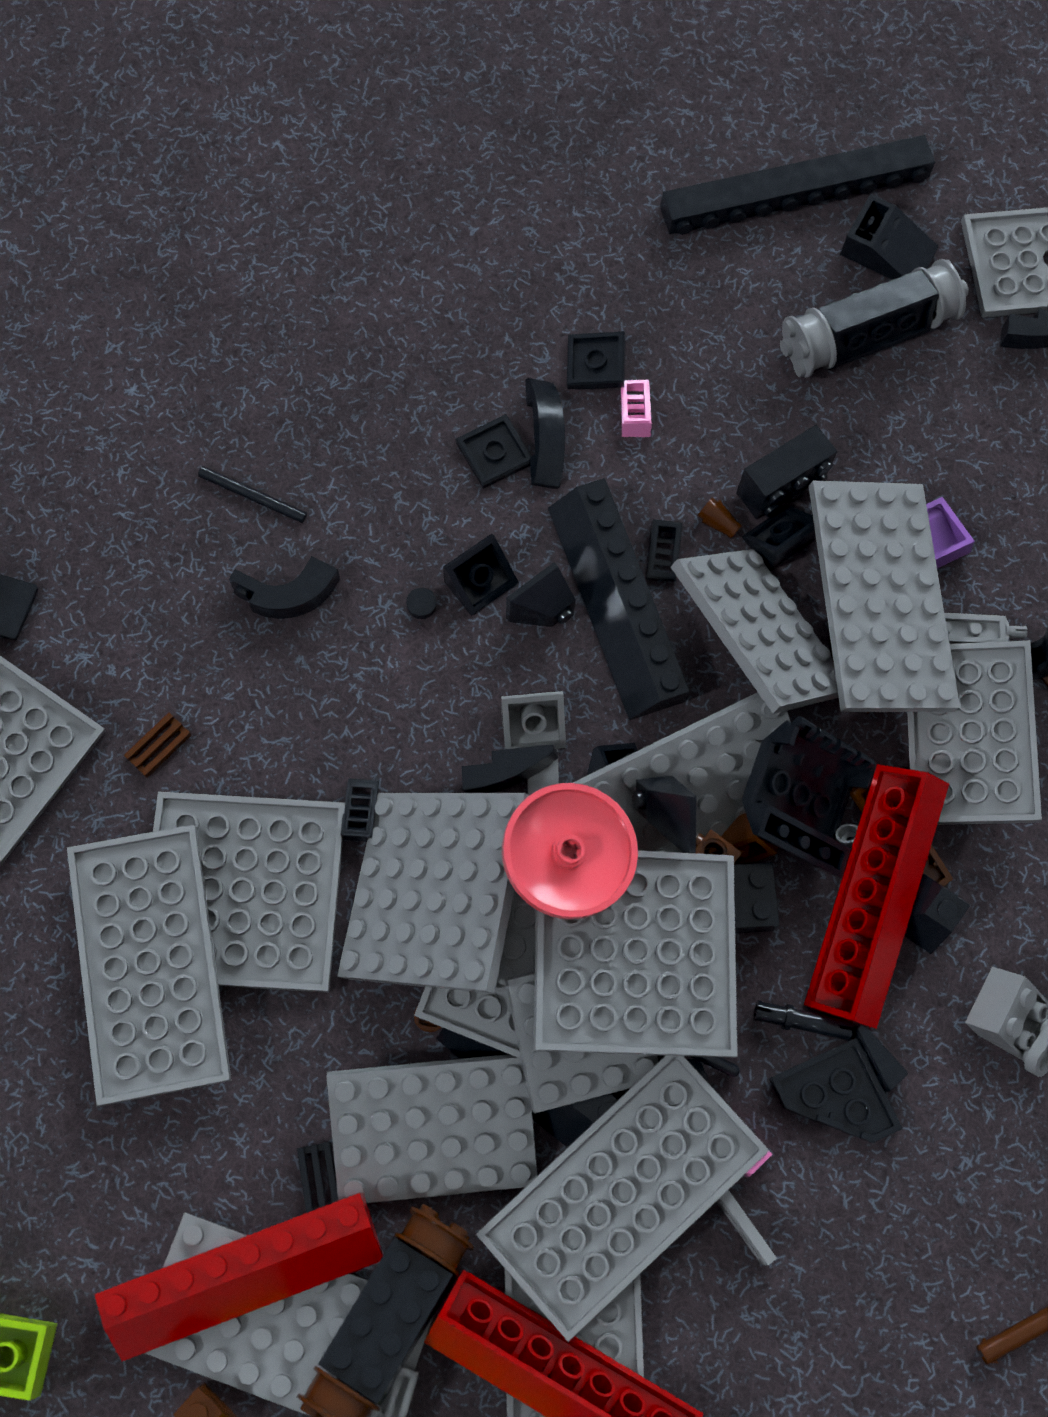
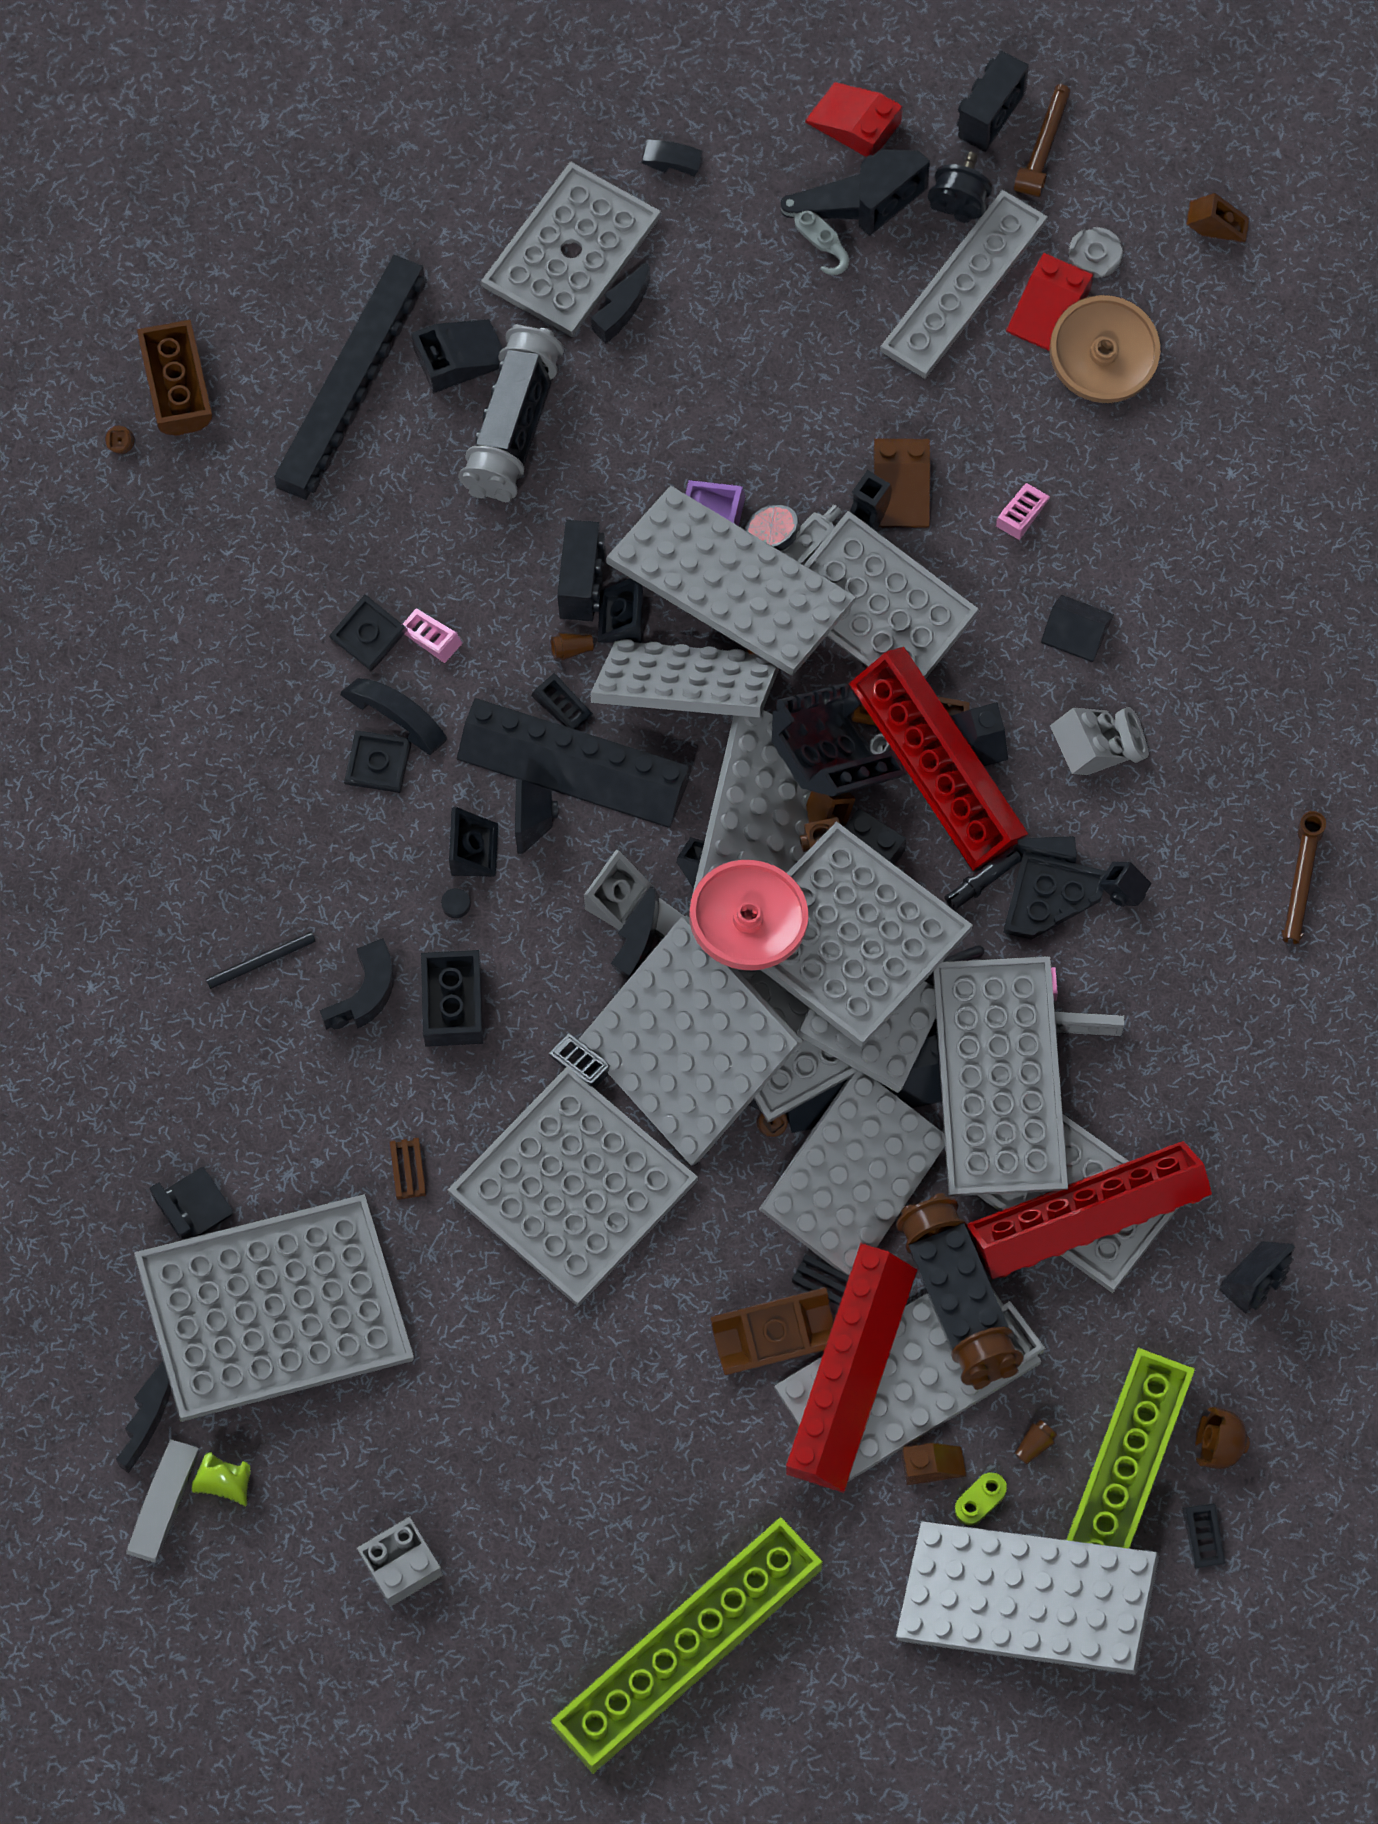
camera: 45 degrees left, 5 degrees down
(147, 965) = (575, 1281): light grey plate -> none
(232, 1174) = (772, 1331): none -> reddish brown piece
(329, 663) = (452, 998): none -> black brick
(599, 70) = (119, 439): none -> reddish brown tile
(669, 809) = (769, 839): black slope -> none
(680, 65) = (175, 378): none -> reddish brown brick
(903, 1155) = (1125, 884): none -> black brick
(964, 594) = (775, 526): none -> tile

